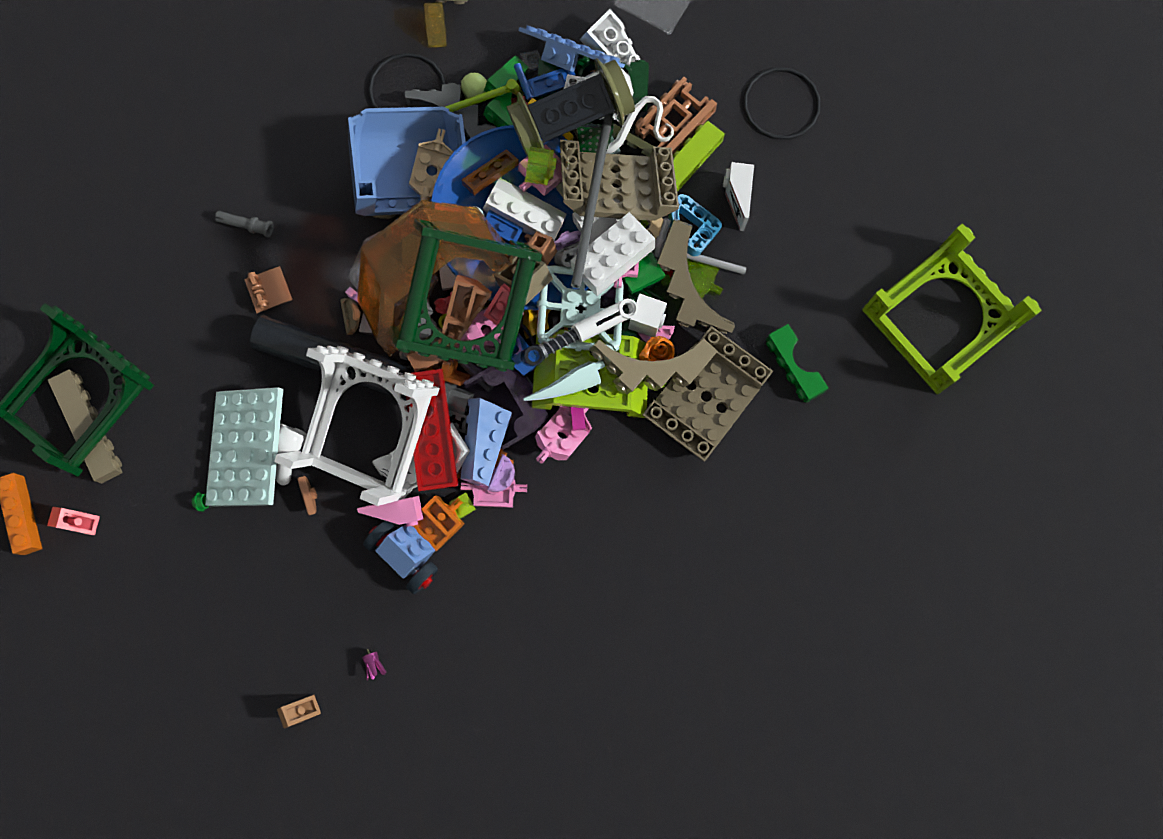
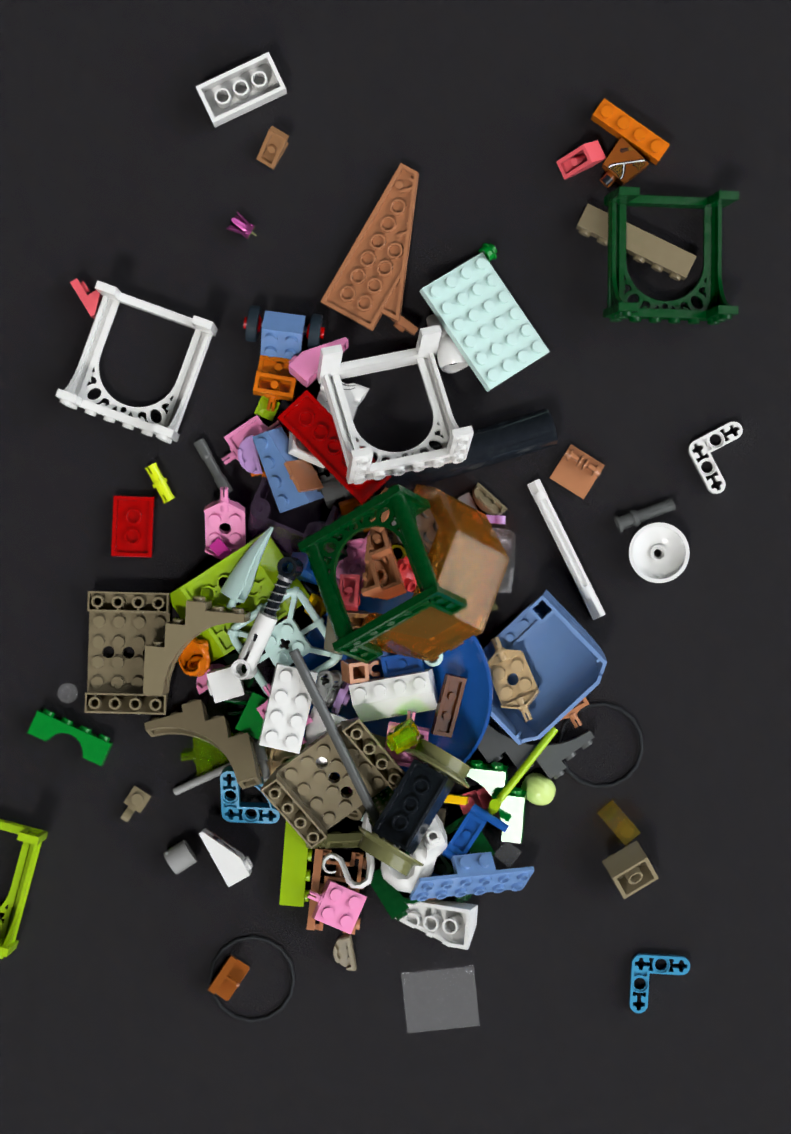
camera: 150 degrees right, 10 degrees up
(44, 493) = (622, 164): none -> dark orange torso
(160, 237) = (707, 447): none -> white beam
(249, 177) = (673, 550): none -> white dish
(286, 779) = (241, 89): none -> white brick
(294, 552) = (376, 266): none -> nougat wing
(321, 239) = (566, 549): none -> white piece
(470, 424) = (303, 475): none -> nougat piece
(536, 503) = (206, 454): none -> dark grey piece
(538, 693) = (90, 301): none -> coral slope
(571, 647) = (77, 391): none -> white arch
(588, 508) = (159, 483): none -> neon yellow pin
(634, 489) = (132, 526): none -> red plate
(682, 101) = (337, 906): none -> bright pink plate
(700, 73) = (344, 952): none -> dark tan plate
(774, 219) = (180, 857): none -> light grey piece
(775, 399) = (67, 693): none -> clear plate
(779, 284) = (136, 801): none -> dark tan plate
(799, 113) = (228, 978): none -> dark orange panel

